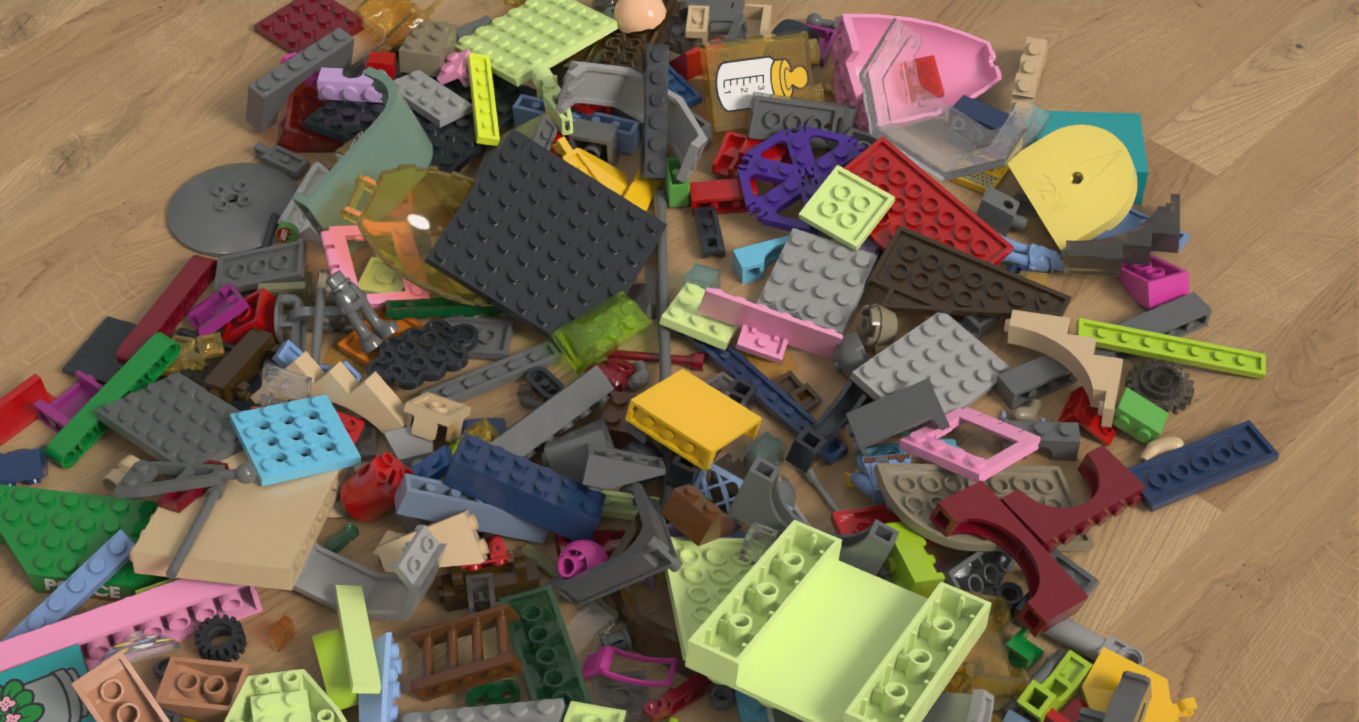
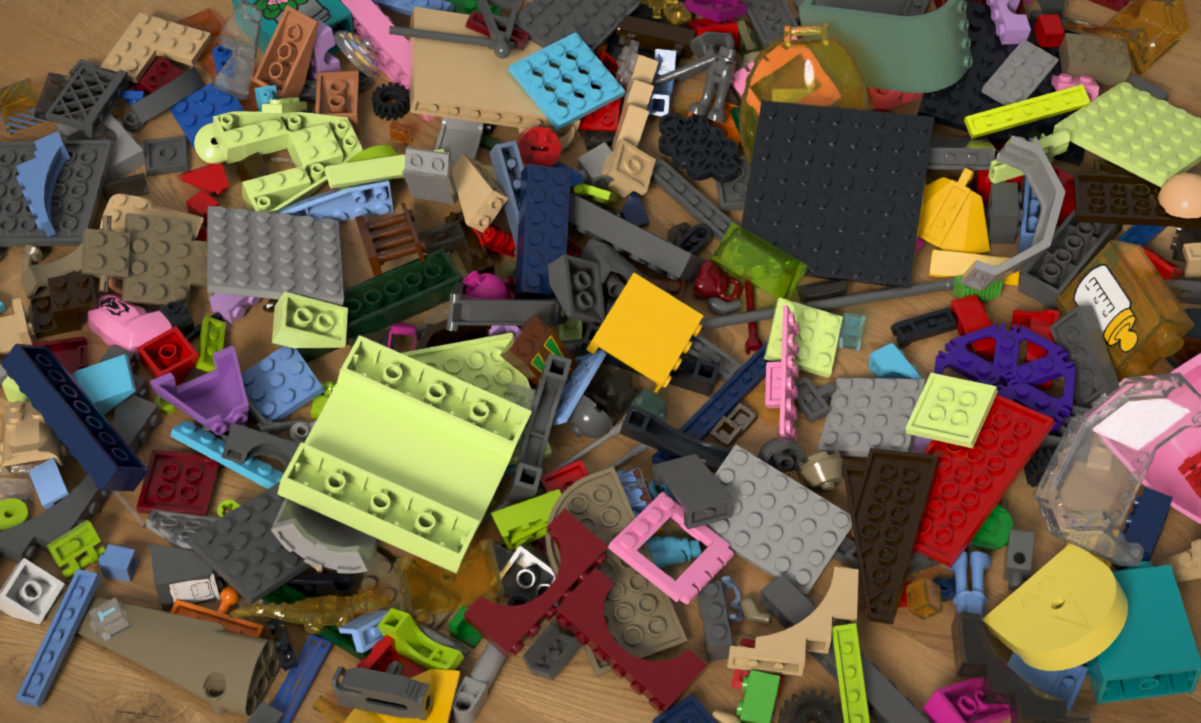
camera: 80 degrees right, 5 degrees up
(483, 430) = (593, 191): clear yellow bracket -> none
(494, 693) = (365, 272): dark green plate -> none
(654, 141) = (1058, 207): black arch -> none

